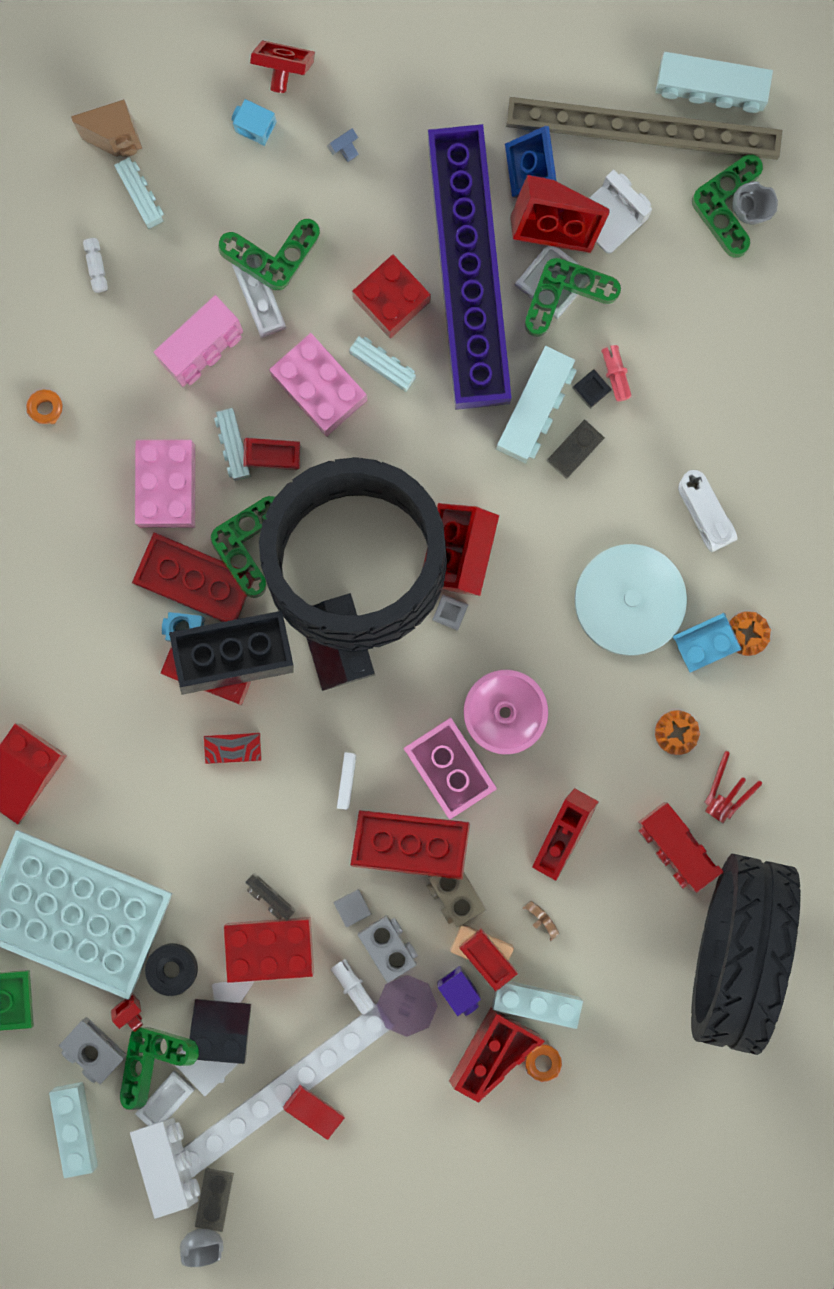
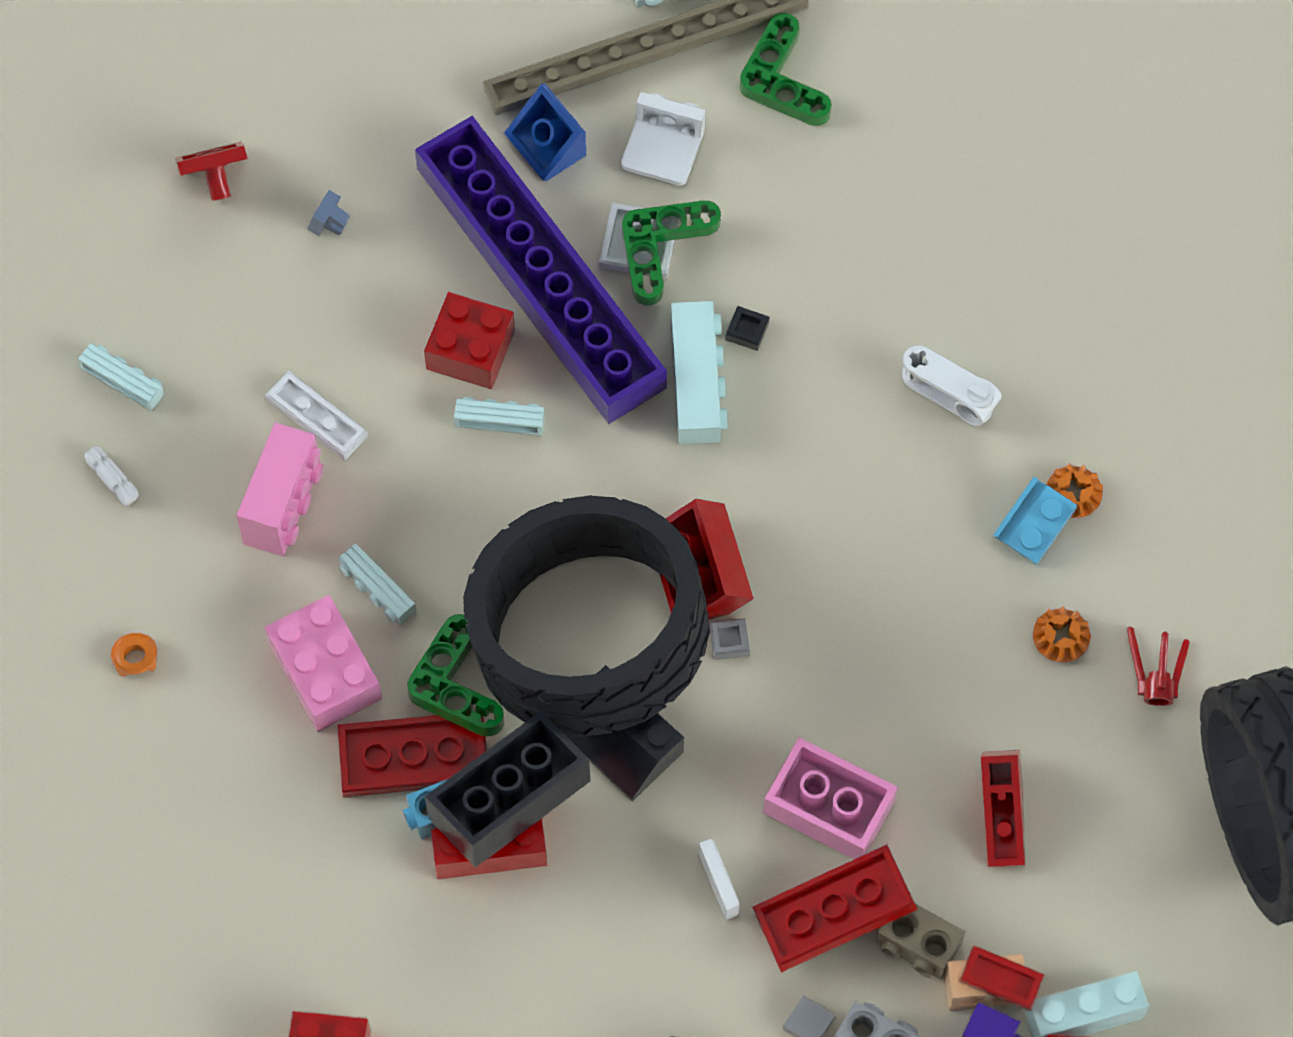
camera: 30 degrees left, 20 degrees down
(109, 129) = (54, 322): medium nougat slope -> none
(232, 748) = (564, 916): tile -> none
(253, 122) = (212, 241): medium azure brick -> none
(271, 454) = (427, 570): red tile -> none
(279, 262) = (320, 370): green beam -> none
(318, 384) = (440, 471): bright pink brick -> none
(526, 706) = (859, 684): bright pink dish -> none
(542, 918) = (1036, 915): medium nougat piece -> none
(556, 216) = (606, 168): red slope -> none
(575, 449) = (767, 398): clear smoke plate -> none
(616, 373) = (765, 297): coral axle -> none
(630, 599) = (923, 523): light aqua dish -> none
(678, 848) = (1140, 752): red wedge -> none
(754, 203) = (810, 57): light grey hair -> none

